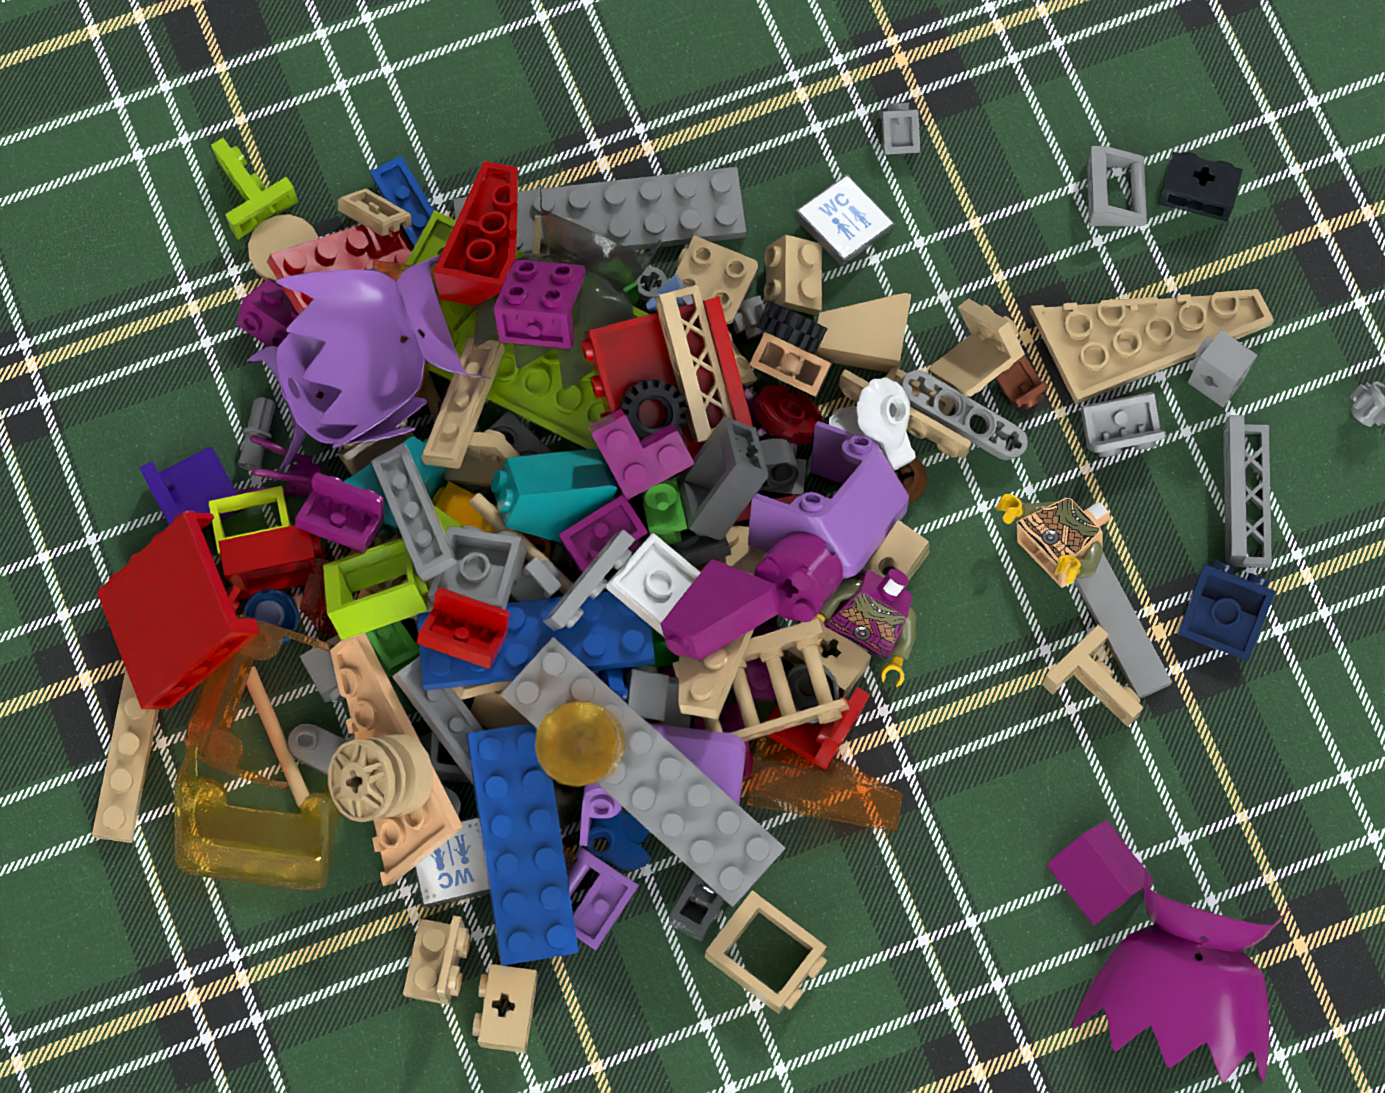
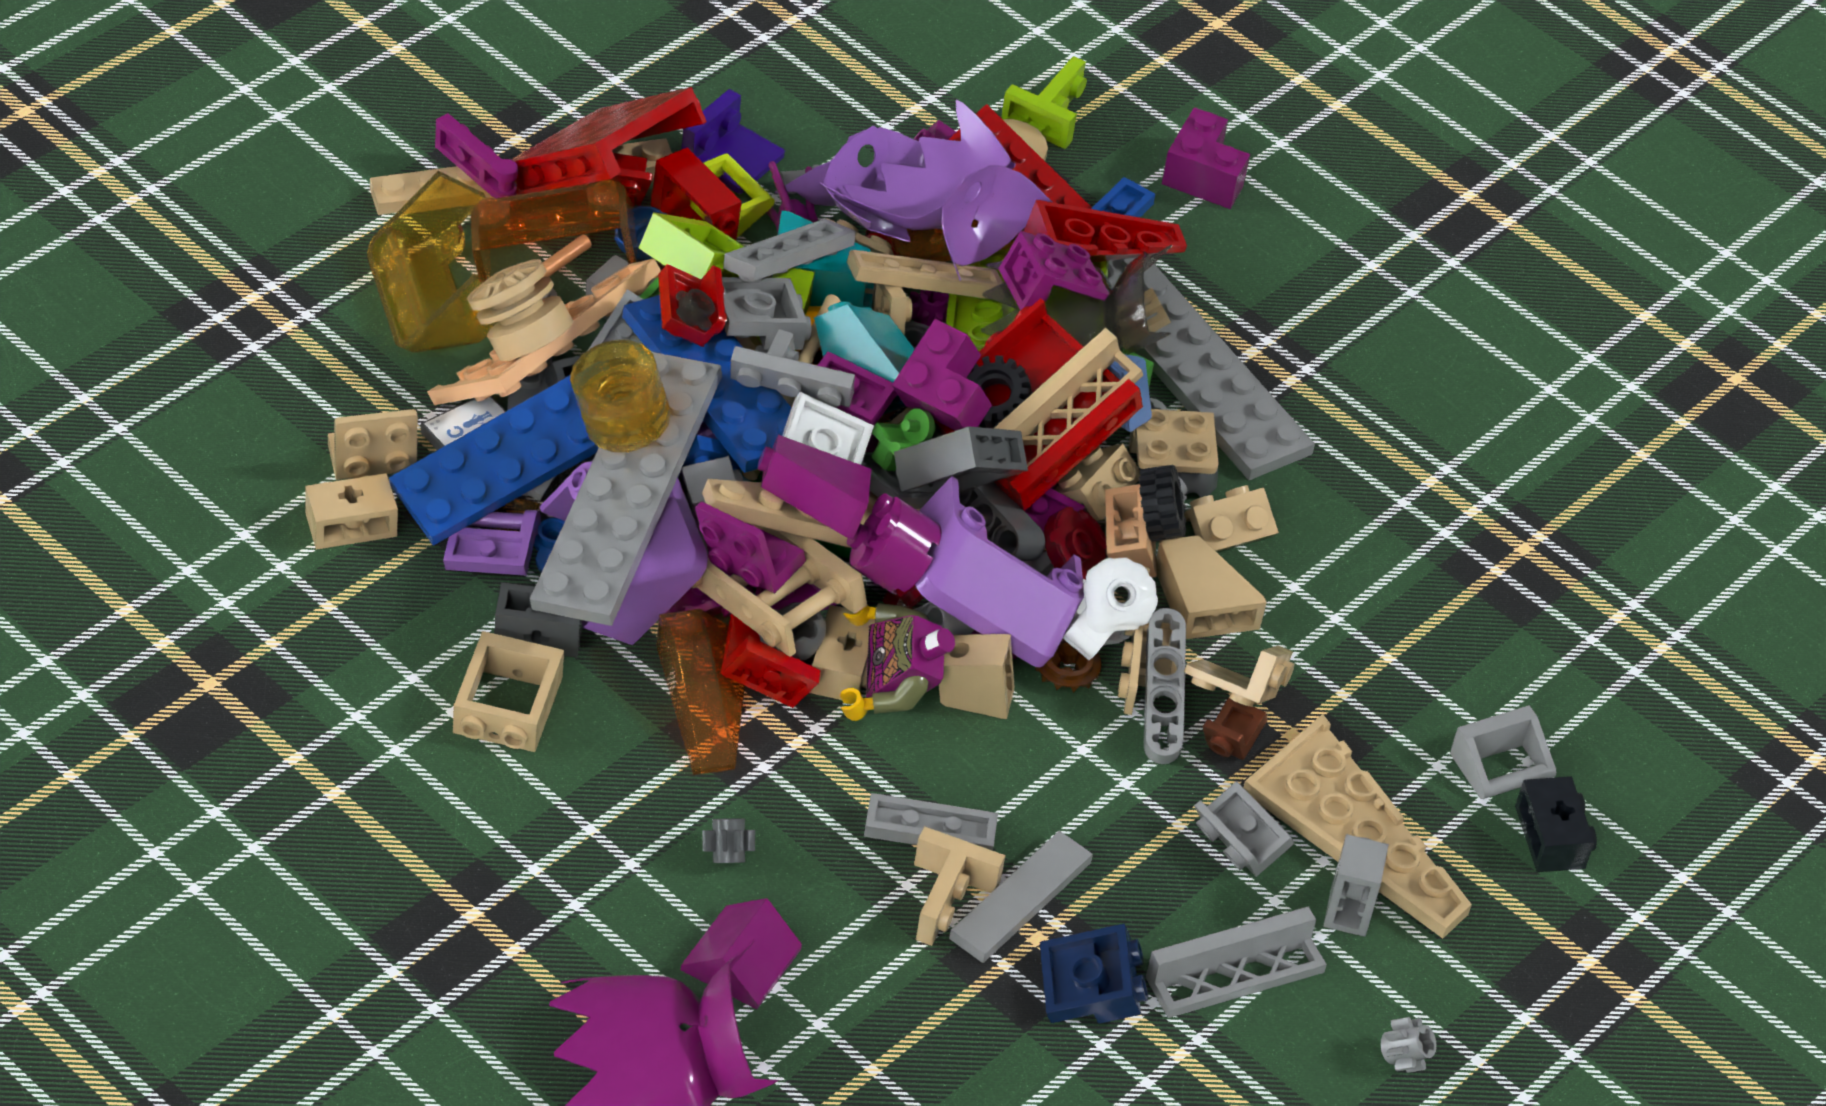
camera: 60 degrees right, 25 degrees down
(128, 731) = (475, 158): none -> magenta plate
(341, 512) = (760, 211): magenta bracket -> none
(374, 212) = (1081, 189): tan tile -> none
(380, 100) = (1202, 163): none -> magenta brick
(487, 632) = (695, 308): none -> clear smoke plate
(754, 689) = (747, 550): none -> magenta bracket
(844, 220) = (1315, 542): white tile -> none
(900, 129) = (1442, 557): light grey bracket -> none
(993, 835) = (728, 840): none -> dark grey gear
(1028, 665) = (905, 818): none -> light grey plate
(1058, 535) = (1083, 800): torso -> none

